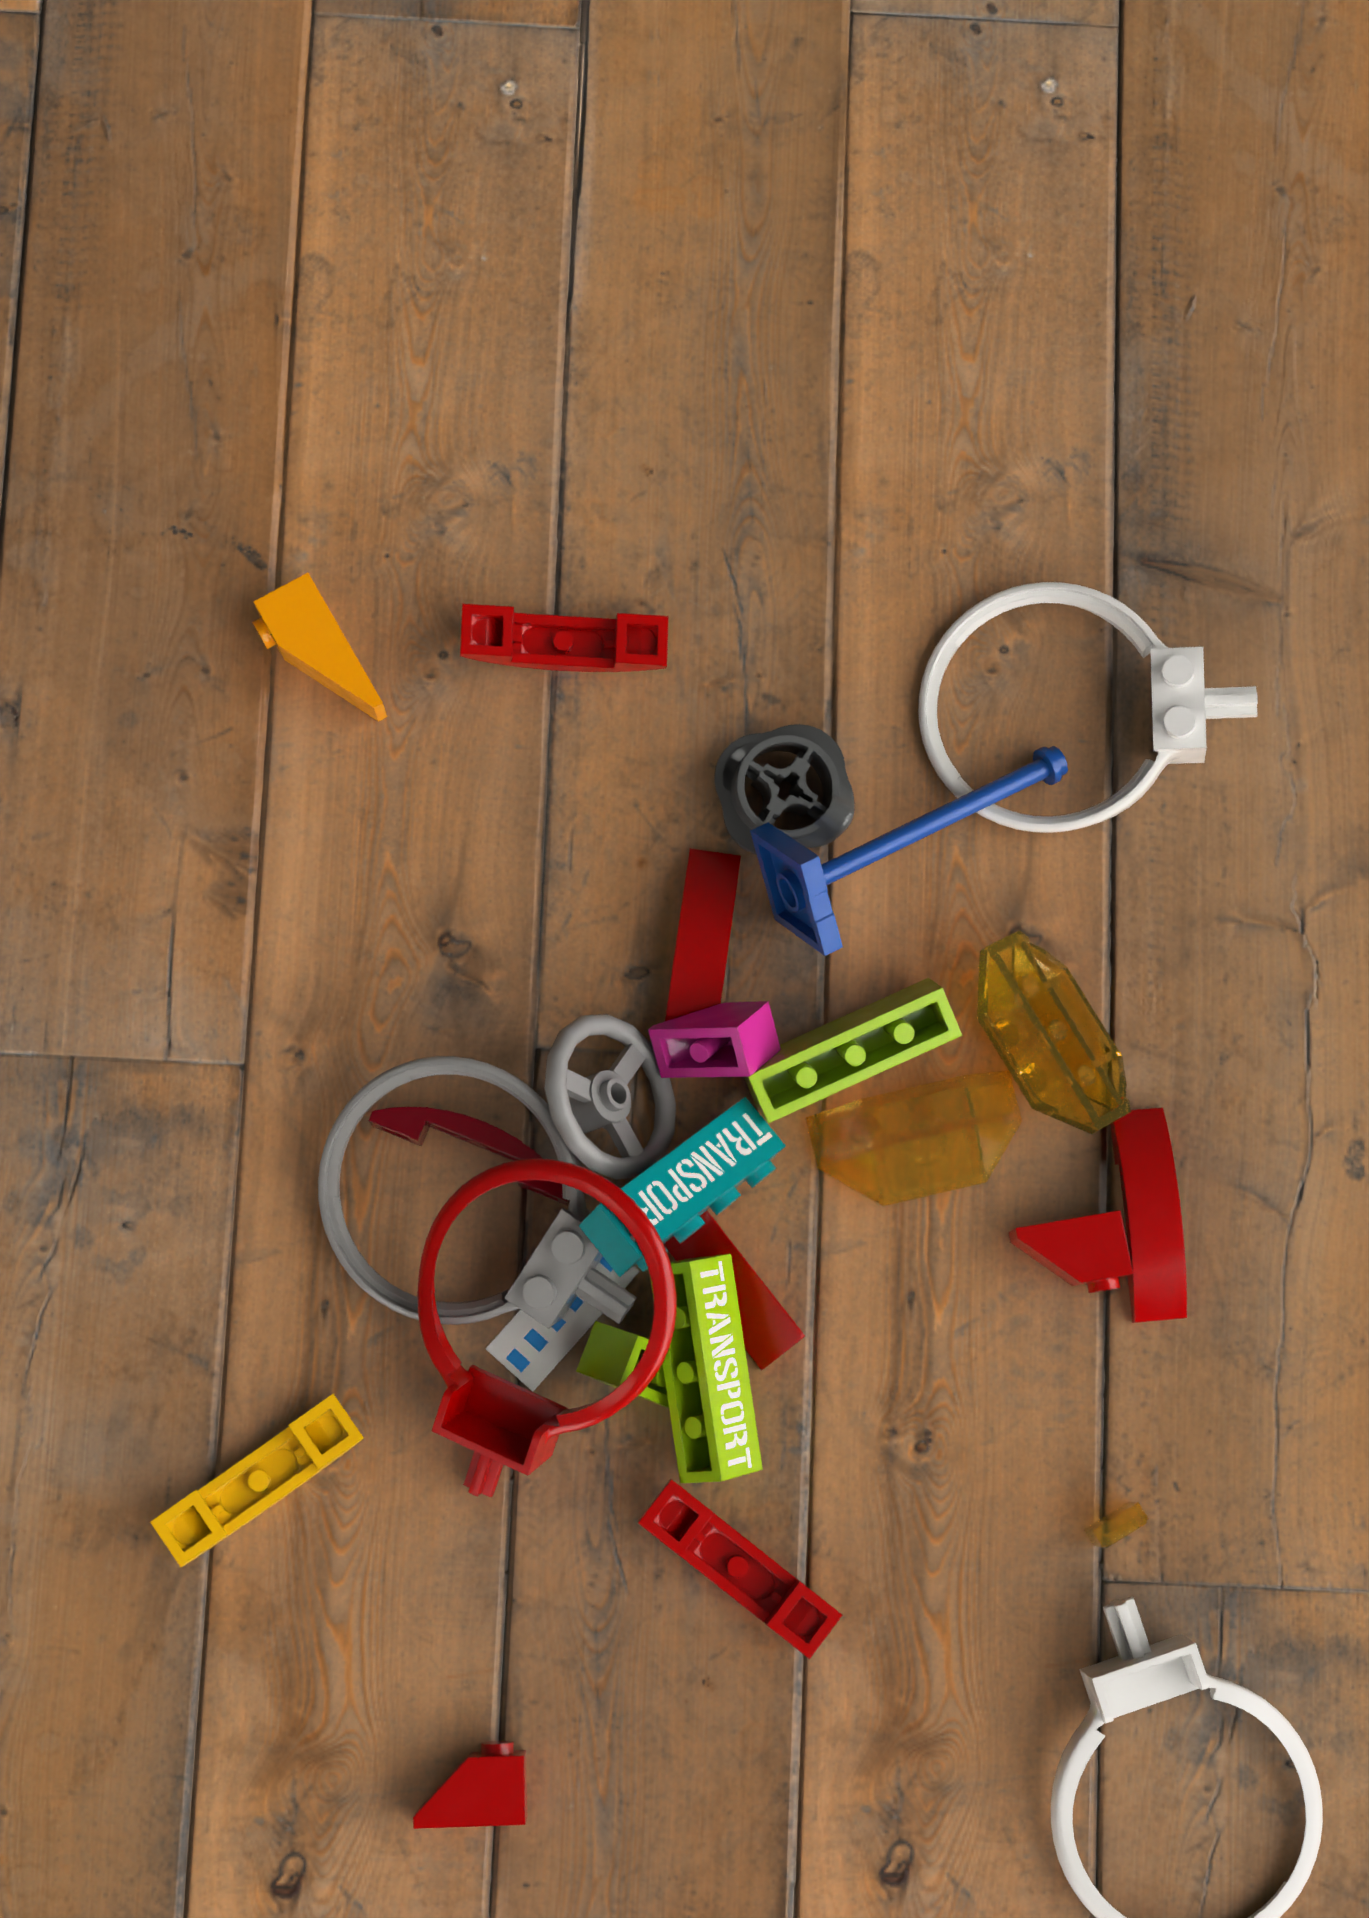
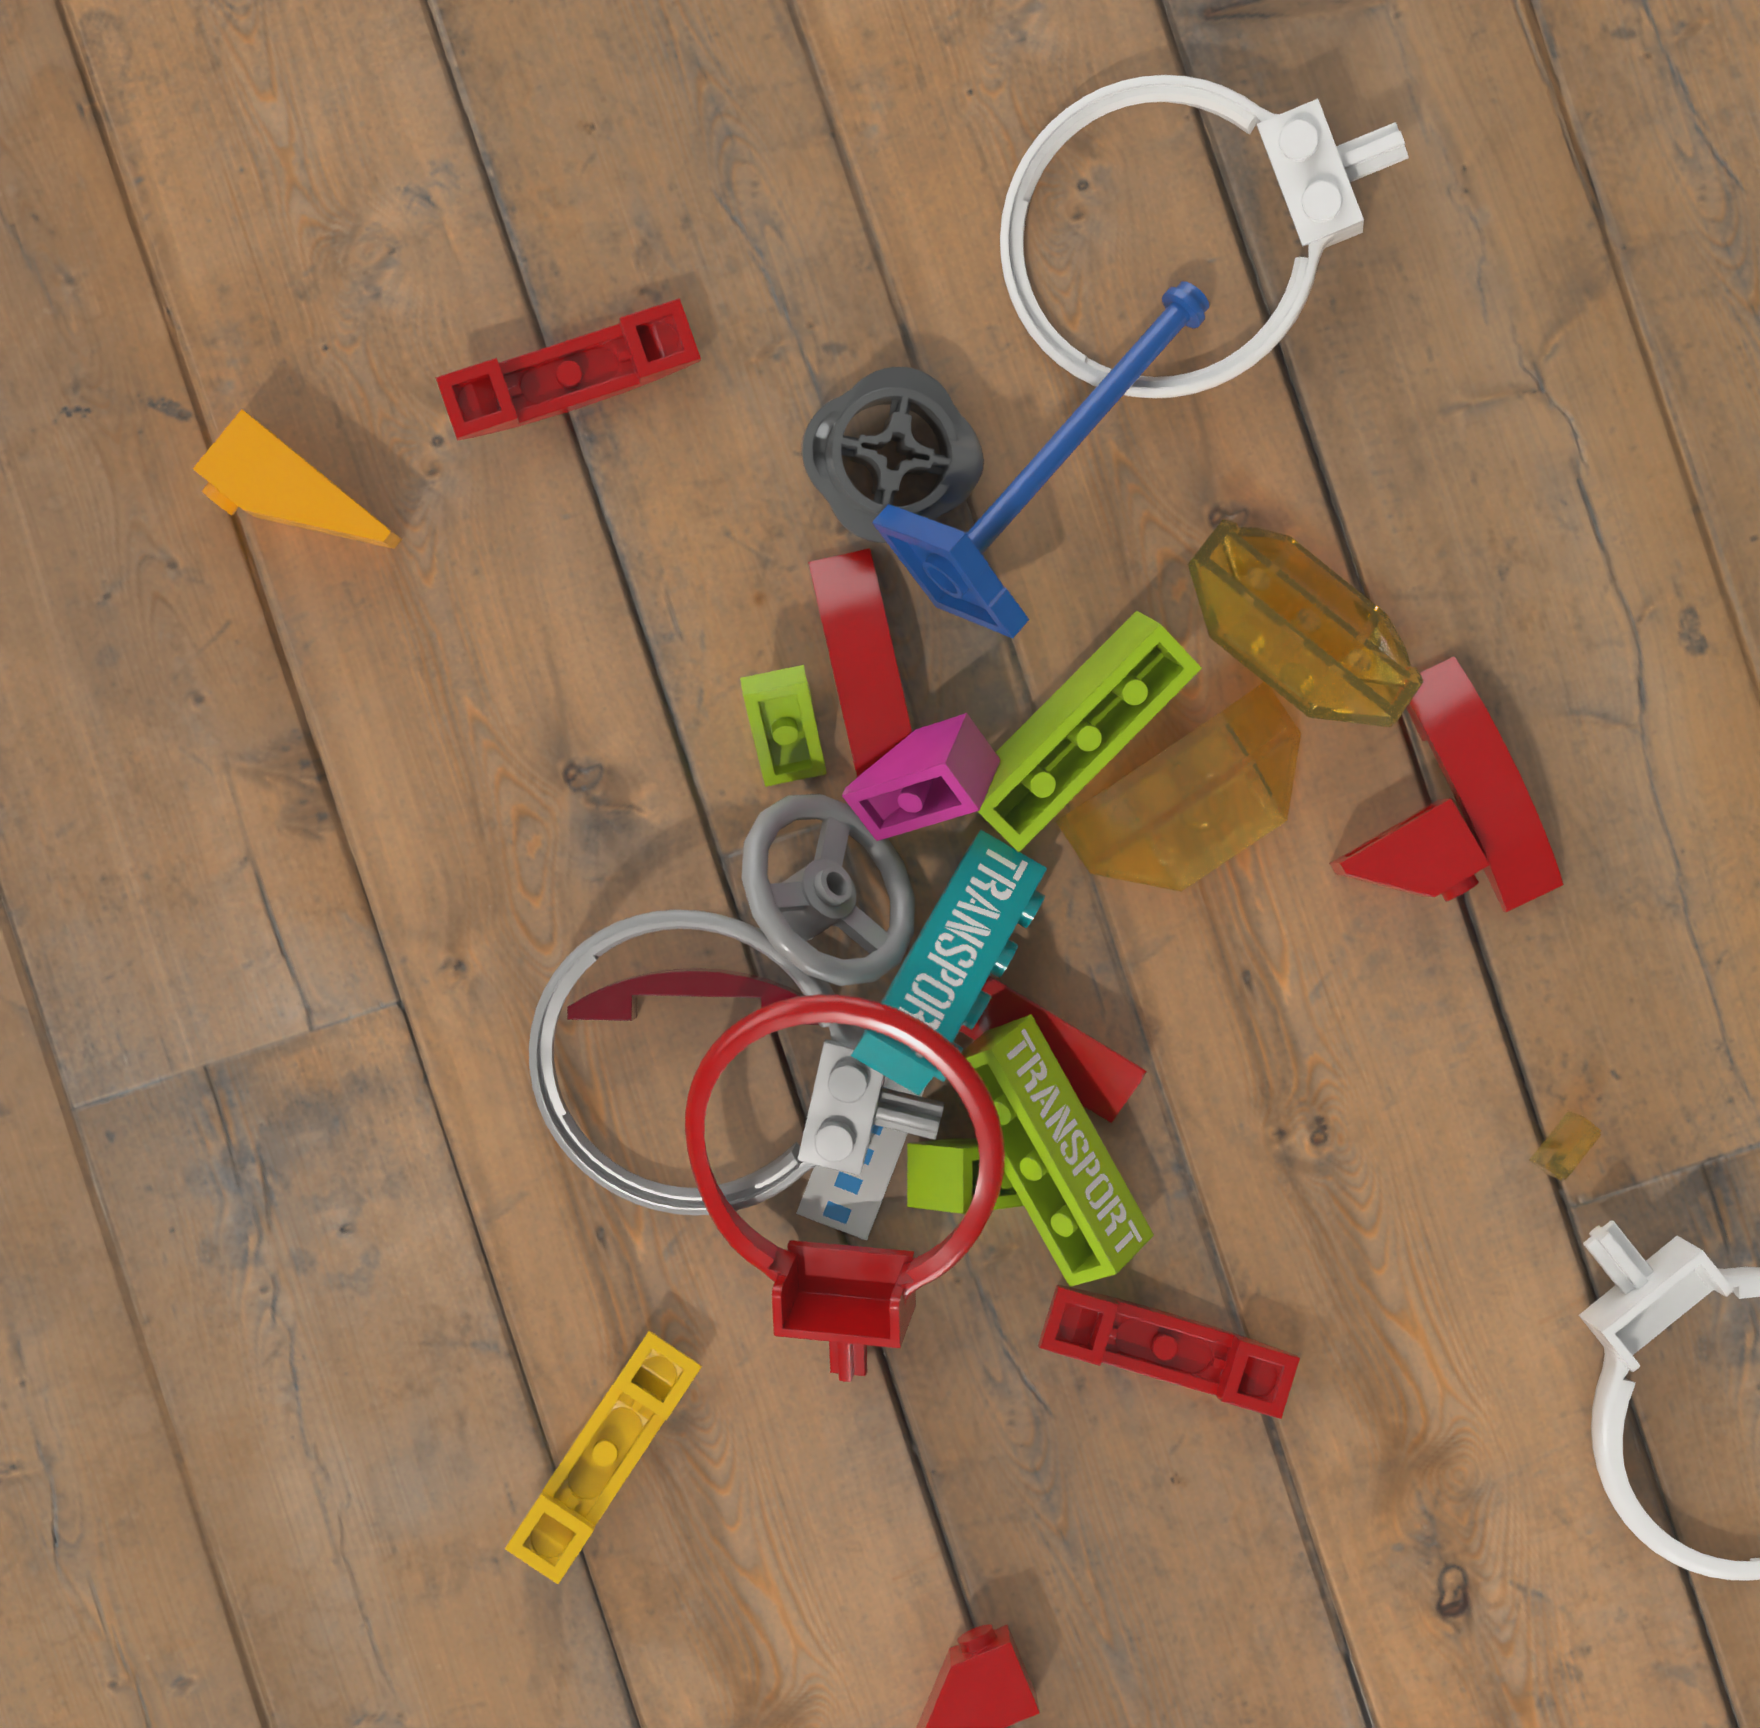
camera: 15 degrees left, 10 degrees up
(623, 961) = (783, 725): none -> lime slope

